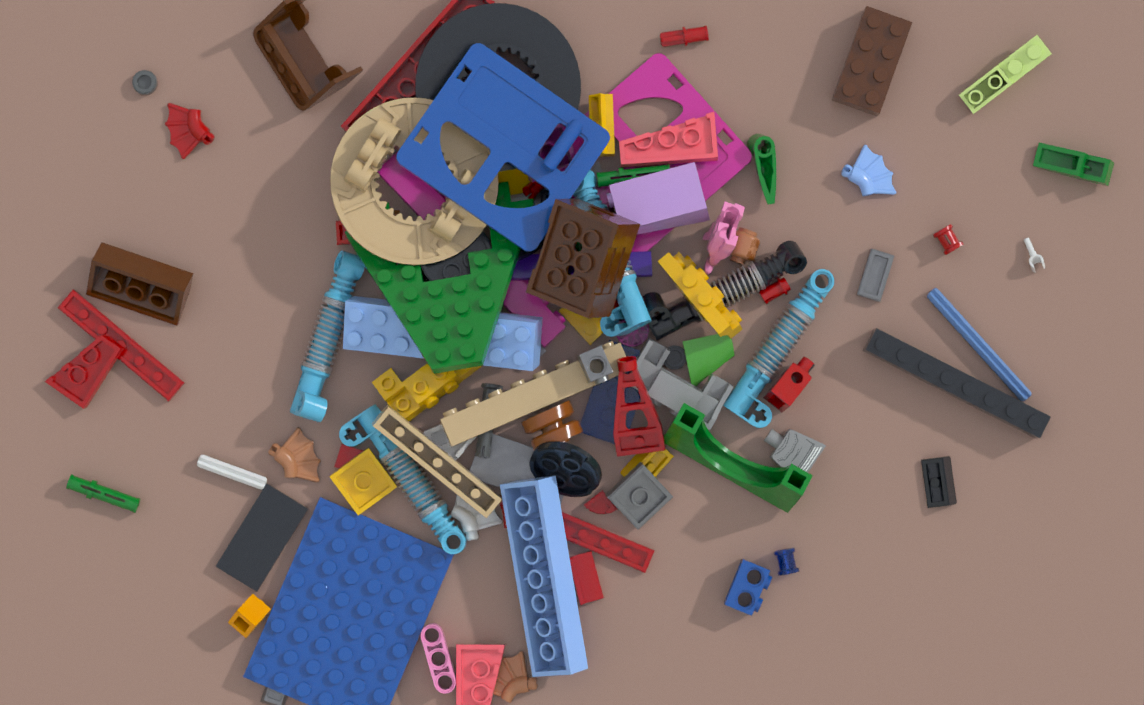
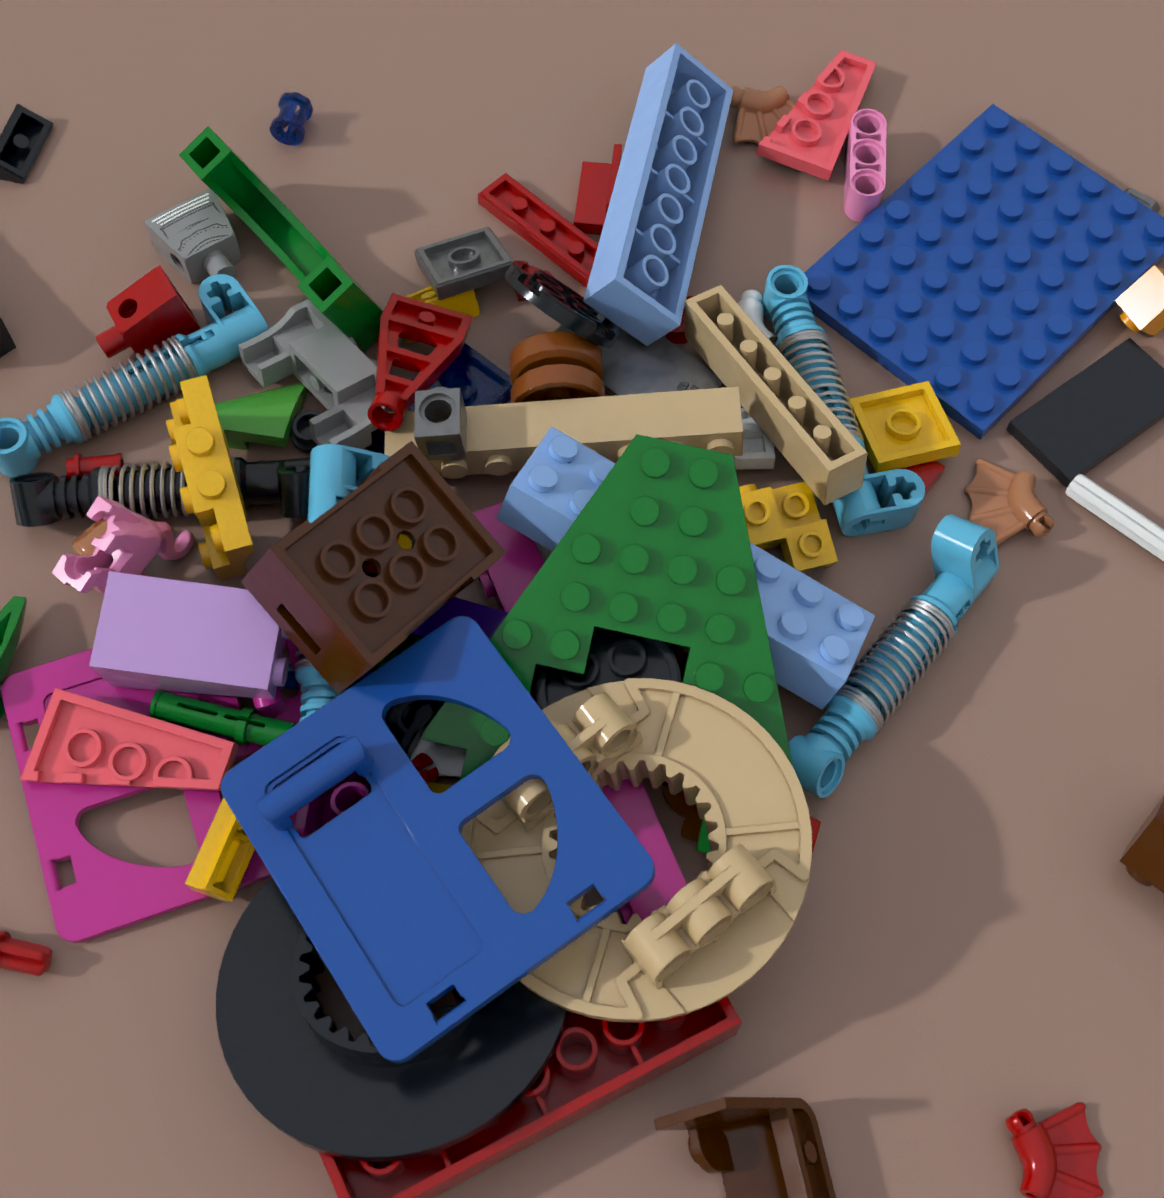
camera: 160 degrees left, 25 degrees down
(740, 585) = (365, 106): blue brick -> none

